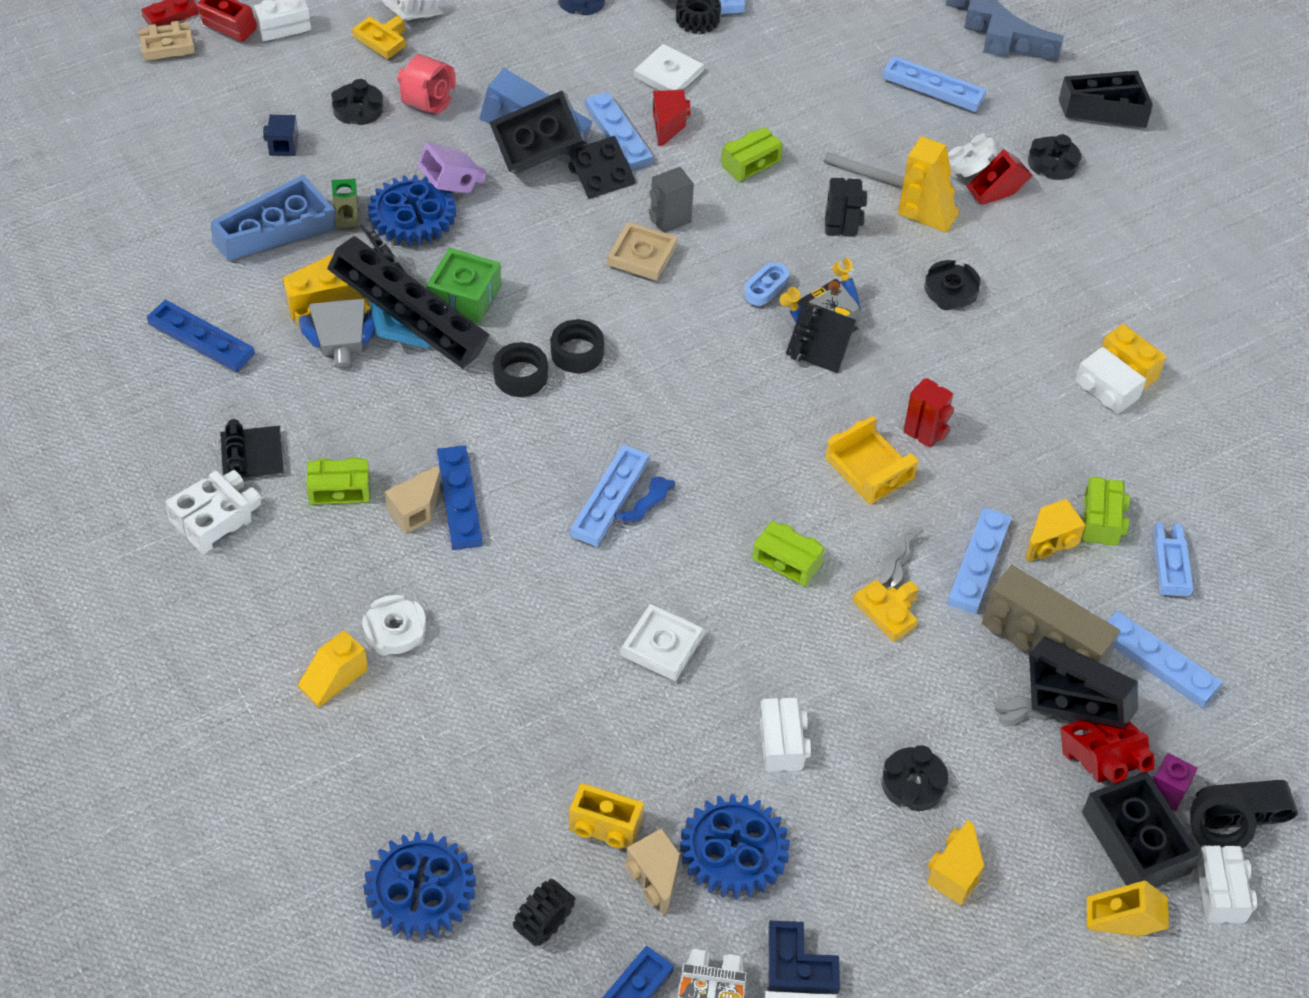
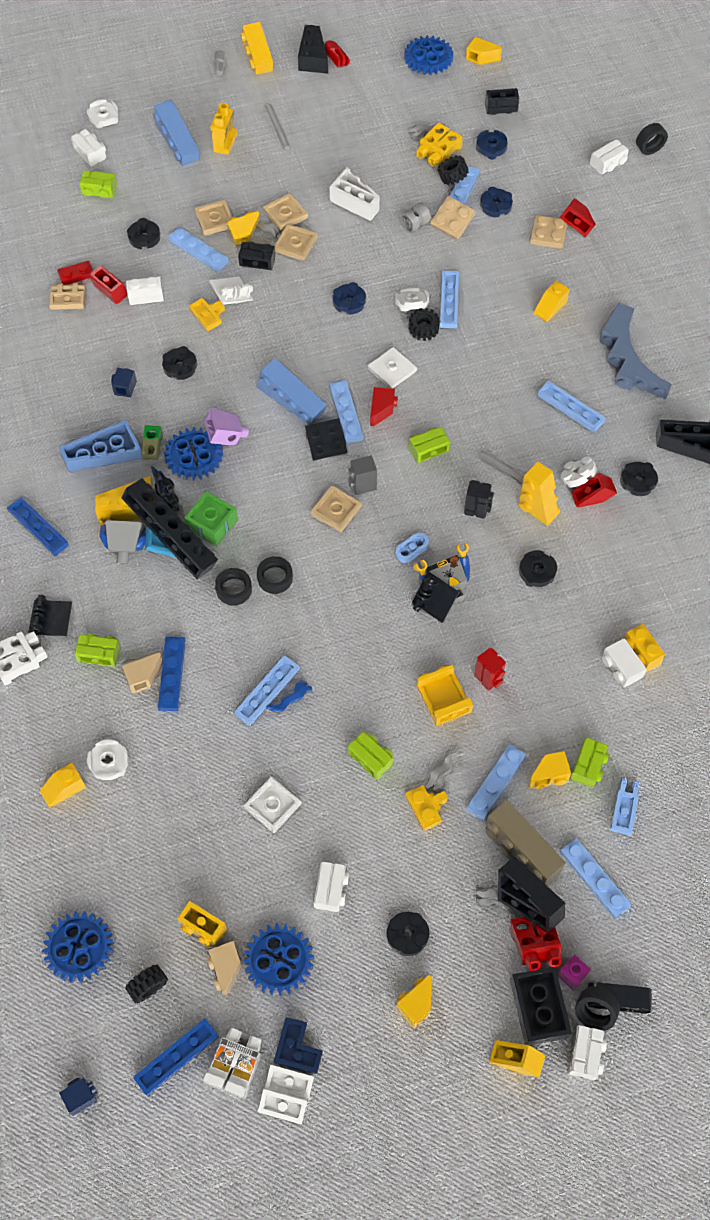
camera: 15 degrees right, 10 degrees up
(426, 84) = (225, 358): coral brick -> none
(538, 132) = (286, 411): black brick -> none

